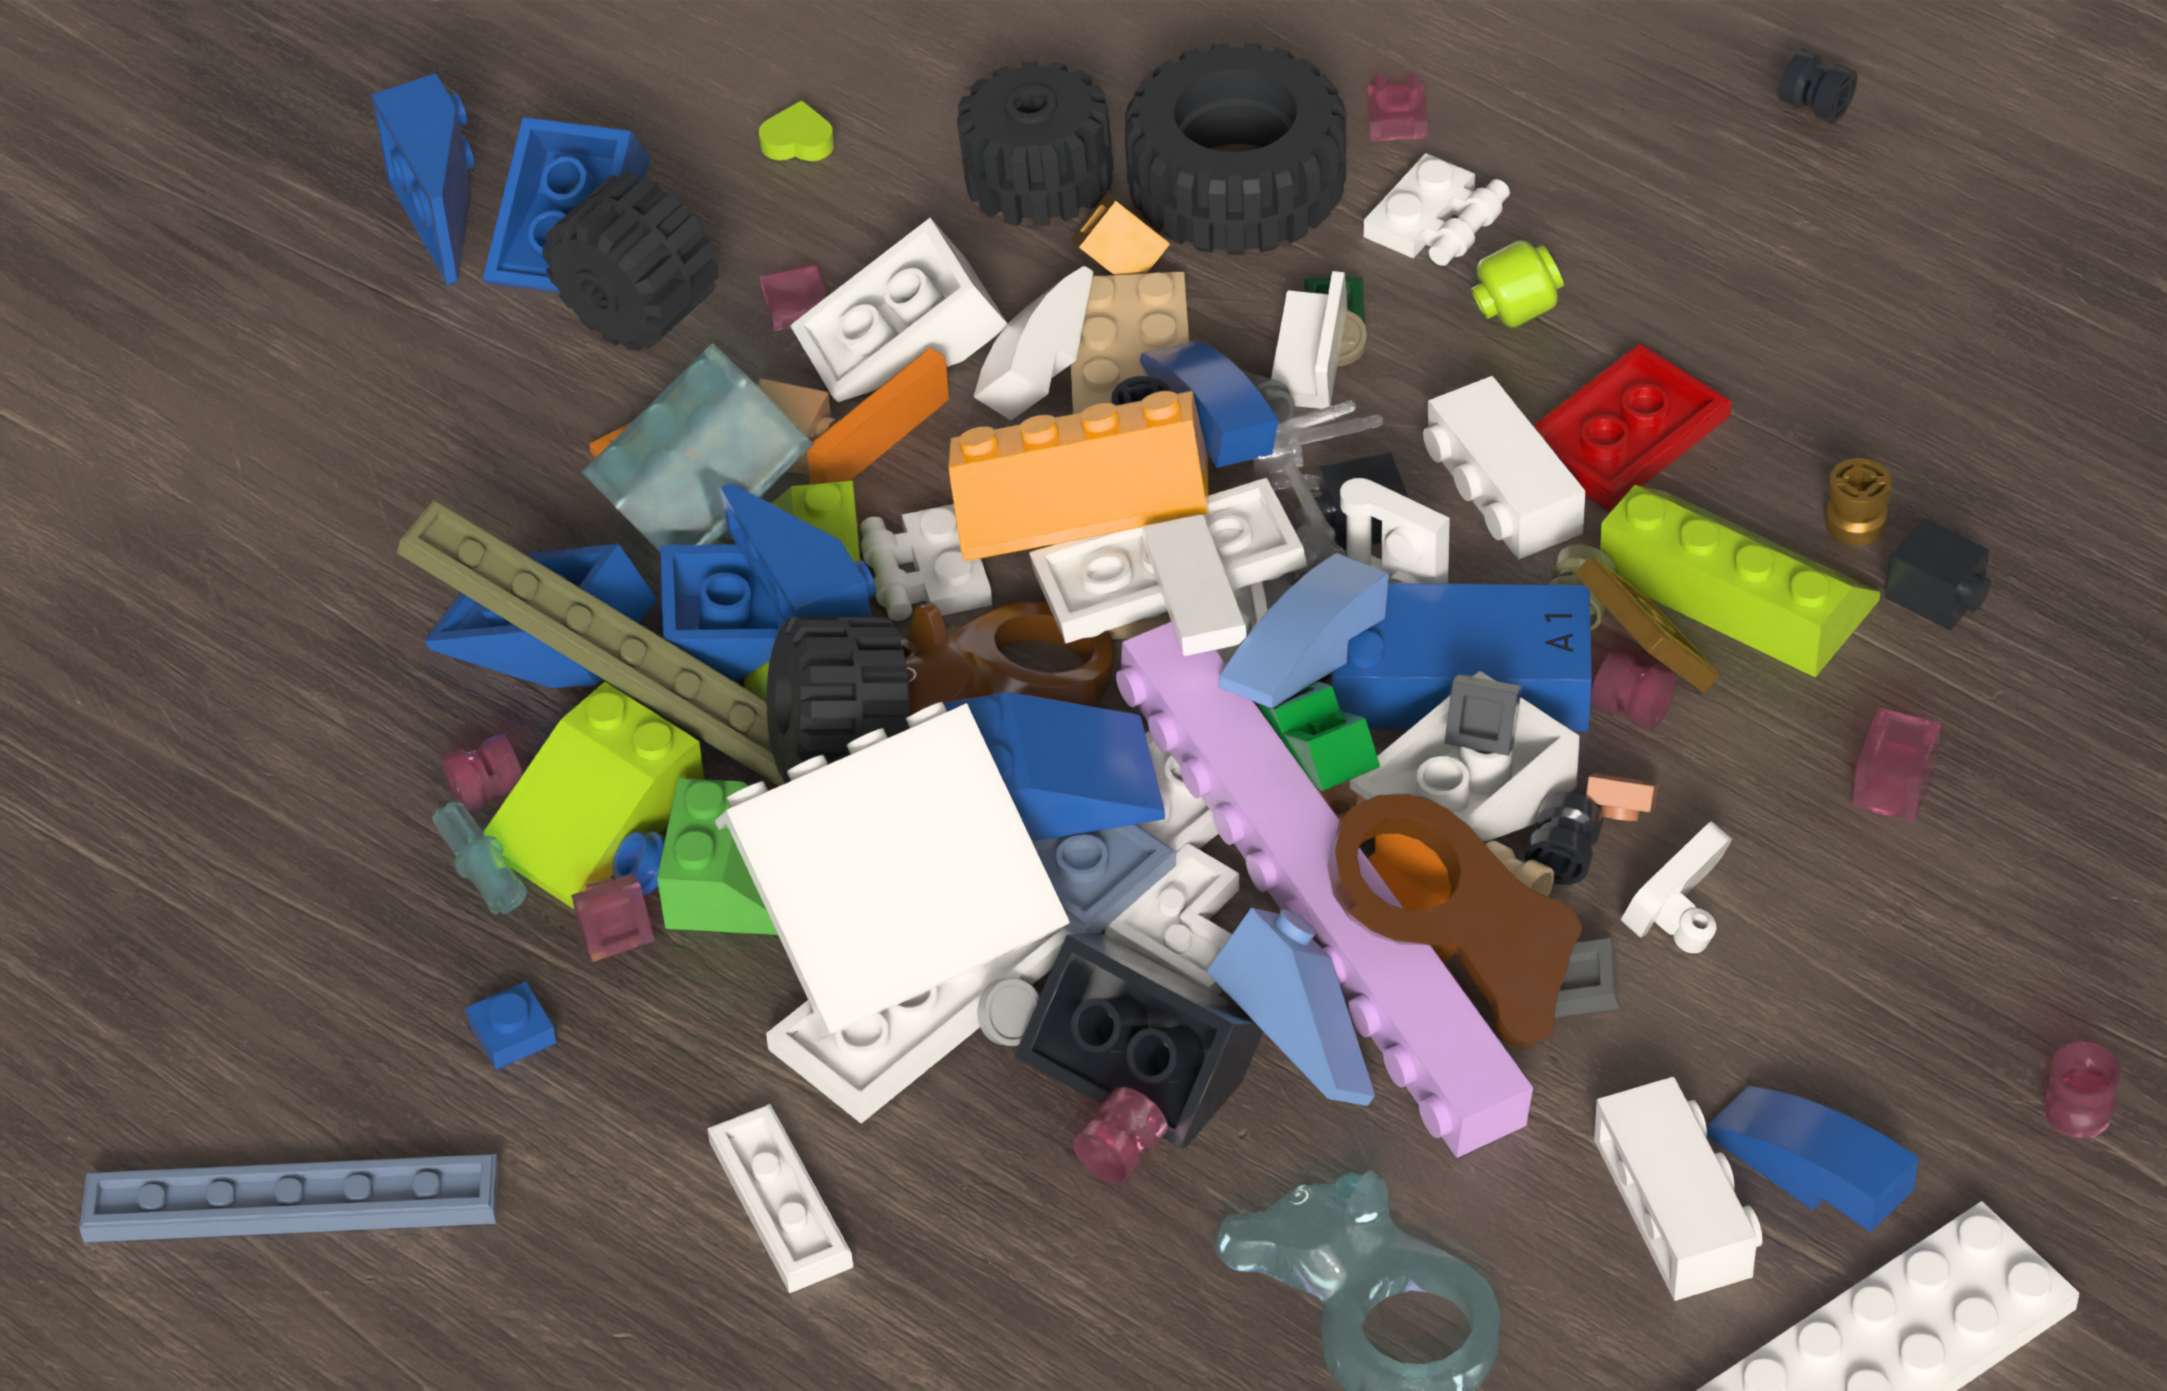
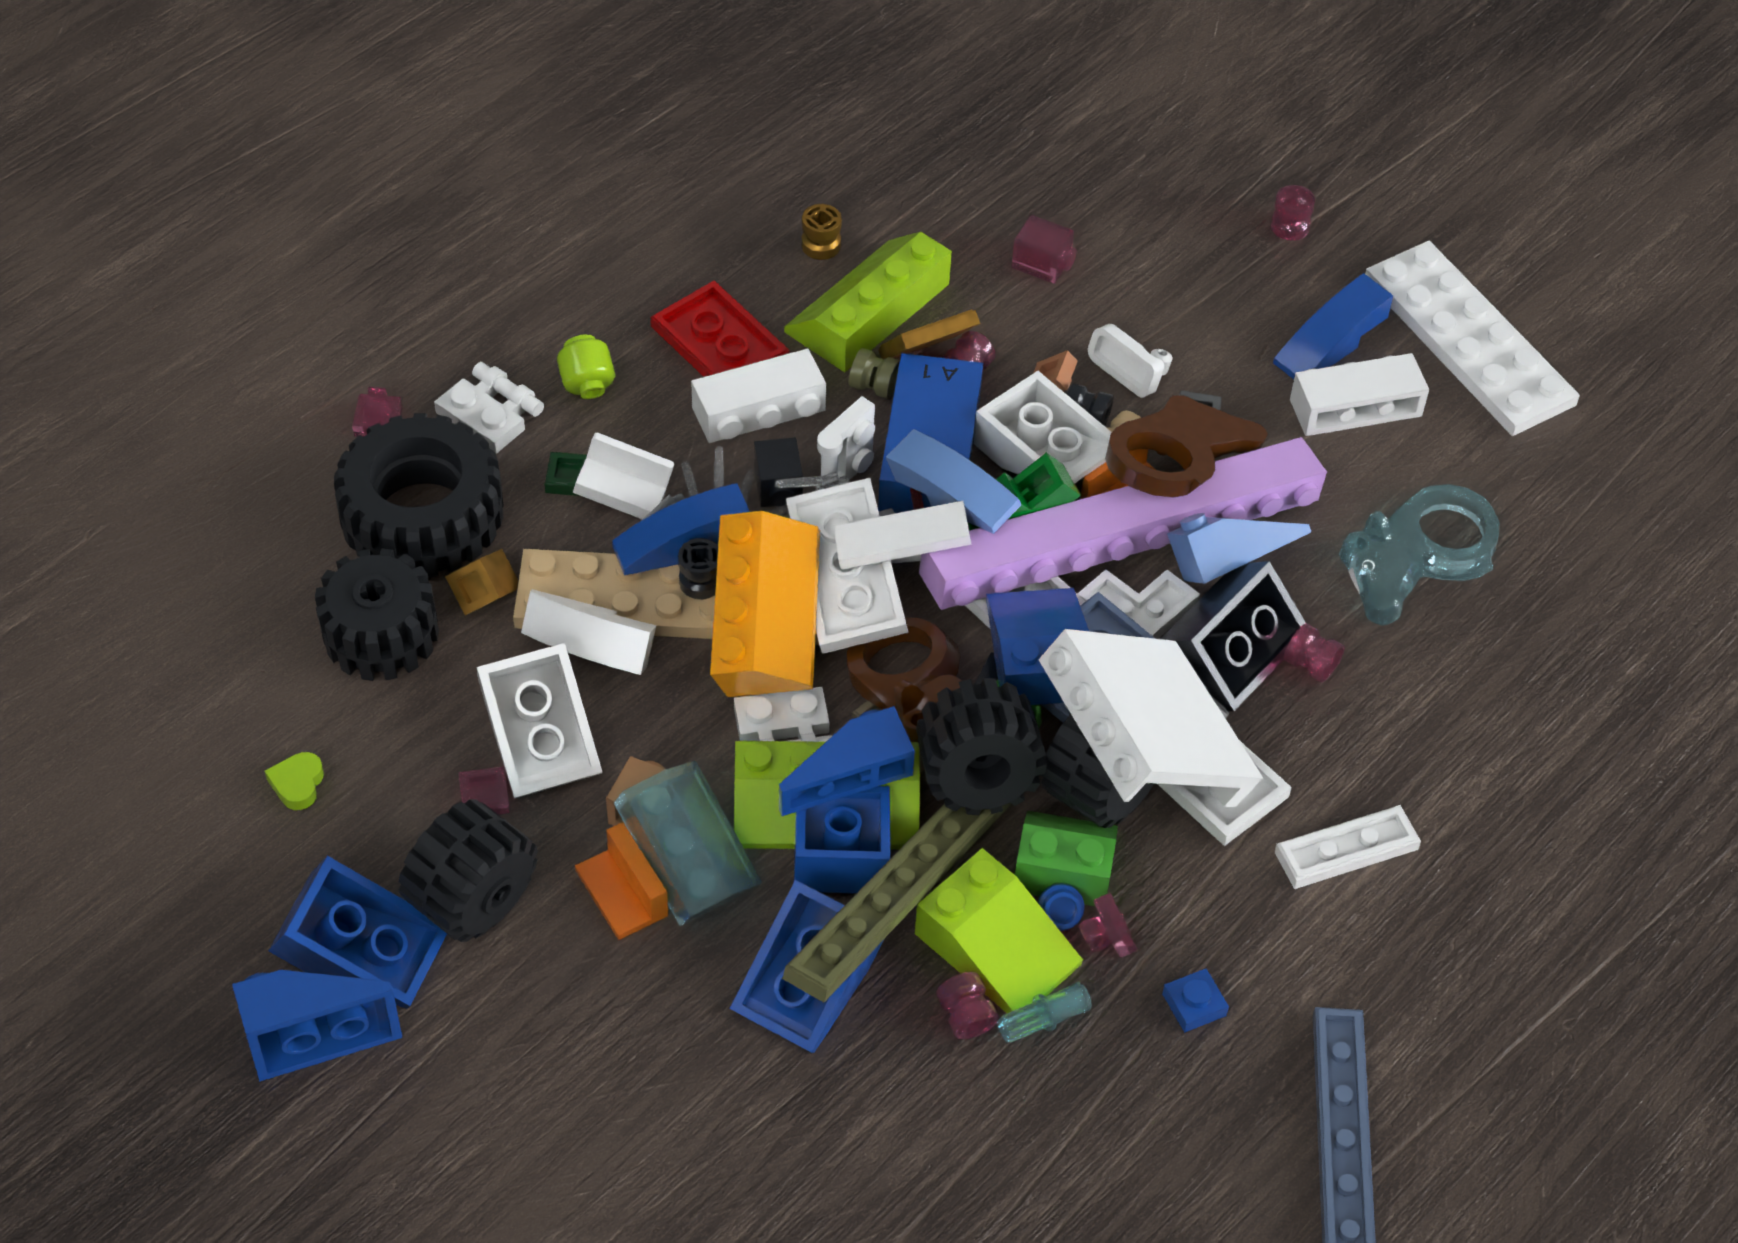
camera: 90 degrees left, 5 degrees up
(880, 420) = (637, 729): orange tile -> none
(1483, 714) = (1033, 402): tile -> none
(1818, 85) = (429, 189): black wheel -> none
(1938, 574) = (889, 206): black brick -> none

